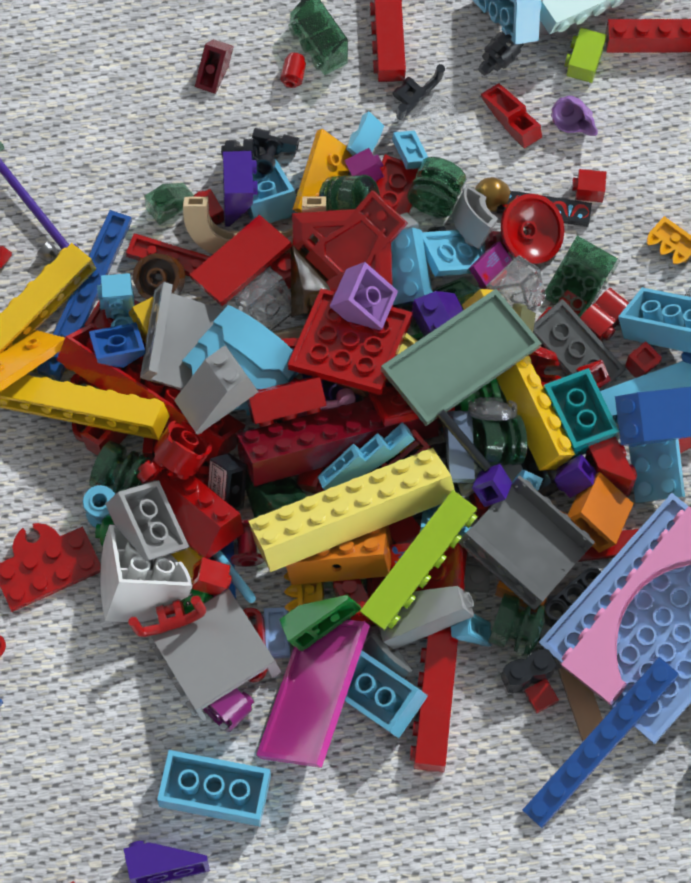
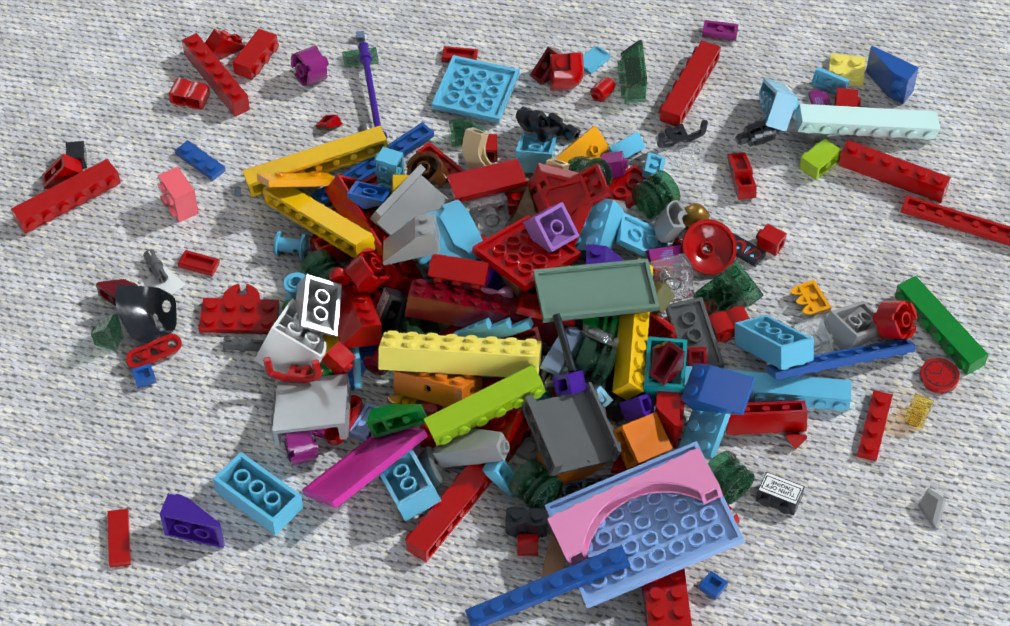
camera: 30 degrees right, 15 degrees down
(54, 448) = (290, 245): none -> medium azure hose
(75, 604) = (242, 344): none -> dark grey pin
(97, 96) = (448, 52): none -> red tile
(144, 135) = (475, 89): none -> medium azure plate
(238, 184) = (512, 132): dark purple slope -> none
(240, 65) = (566, 70): none -> red brick
(255, 32) = (595, 59): none -> medium azure piece
(573, 116) = (785, 191): medium lavender hair -> none
(584, 410) = (666, 362): none -> dark red slope
(642, 360) = (738, 360): red panel -> none

